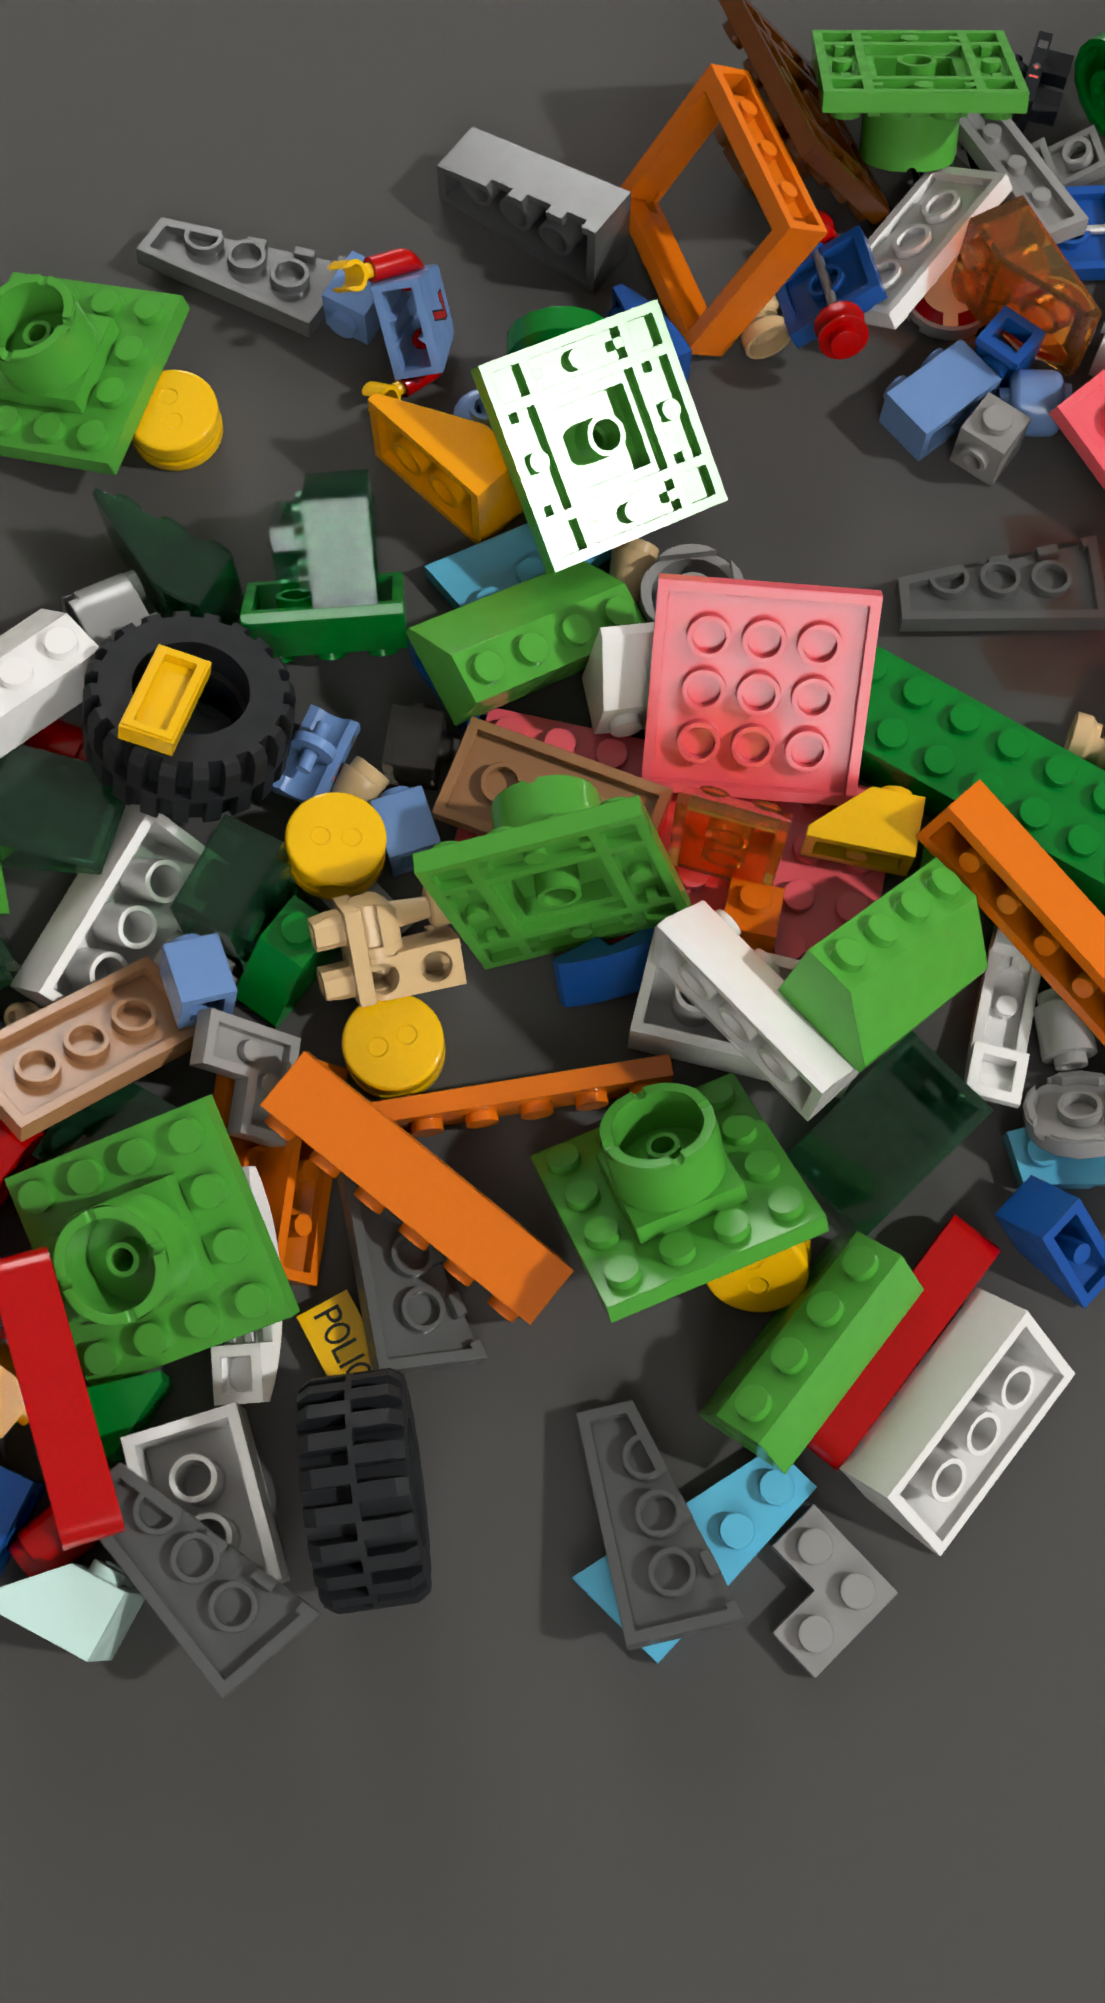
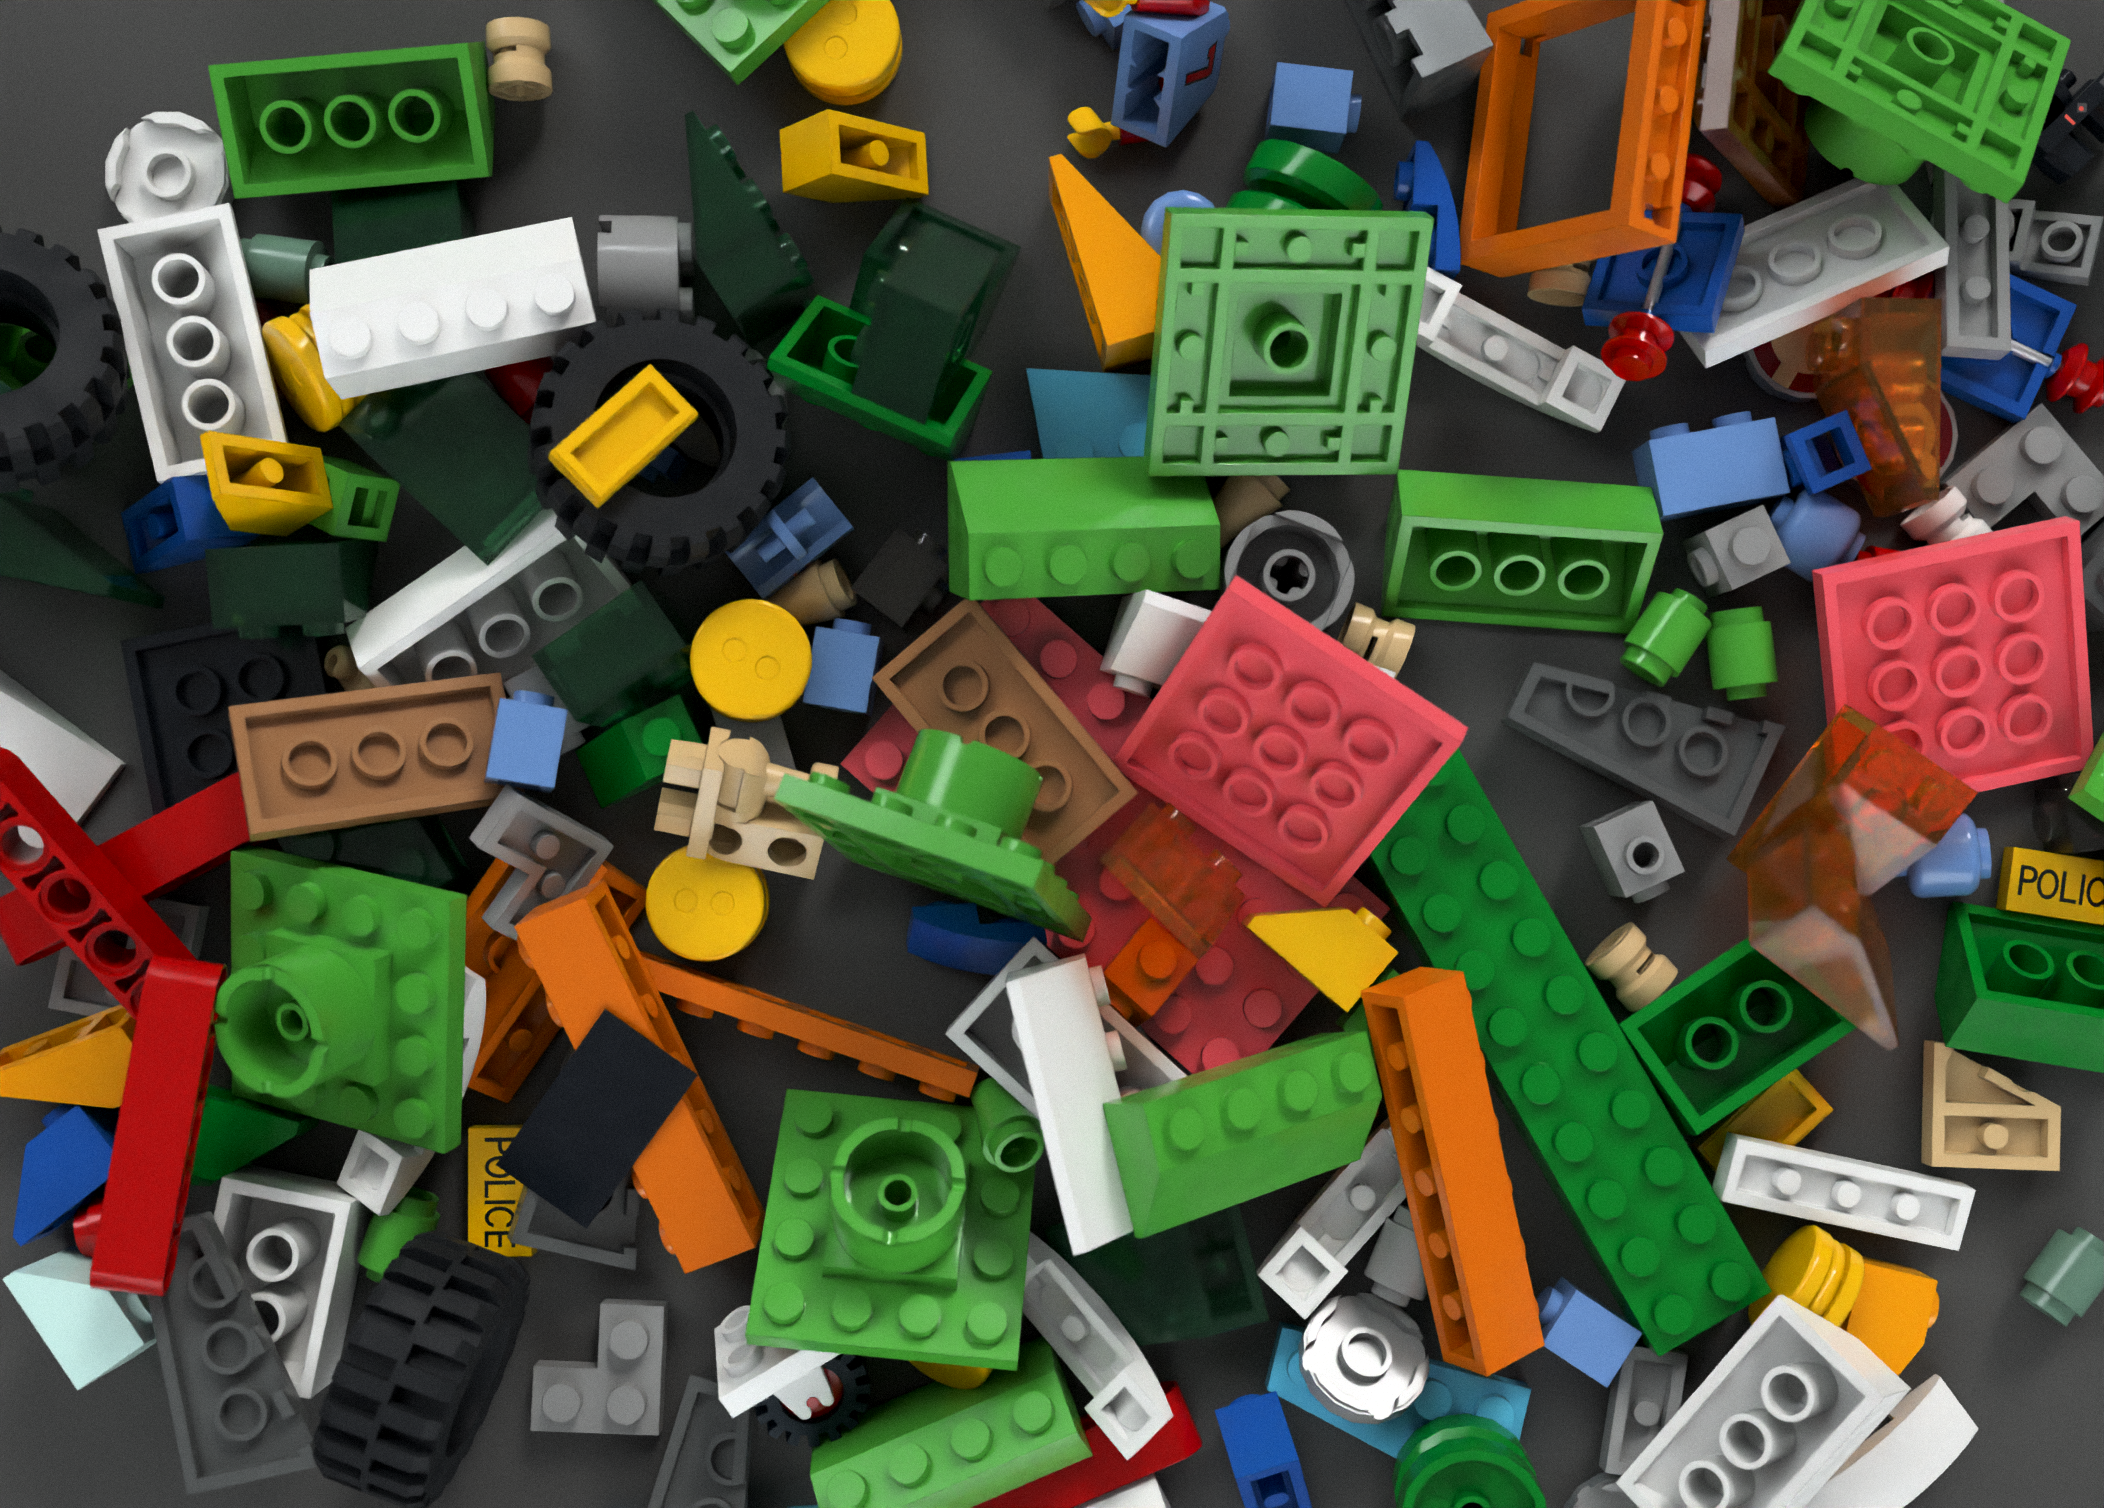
camera: 25 degrees right, 15 degrees up
(222, 490) = (852, 159): none -> yellow slope
(277, 1427) = (390, 1232): none -> bright green brick
(398, 1231) = (596, 1119): none -> black sticker
(520, 295) = (1312, 106): none -> medium blue brick
(527, 1461) = (620, 1390): none -> light grey plate
(658, 1358) = (789, 1387): none -> plate
(718, 1075) = (1007, 1129): none -> bright green cone
(768, 401) = (1514, 359): none -> white slope
(844, 511) = (1518, 551): none -> bright green slope
(887, 1214) = (1096, 1348): none -> white slope
(977, 517) = (1665, 636): none -> bright green brick
(1035, 502) = (1741, 653): none -> bright green brick
(1045, 666) = (1632, 851): none -> light grey brick

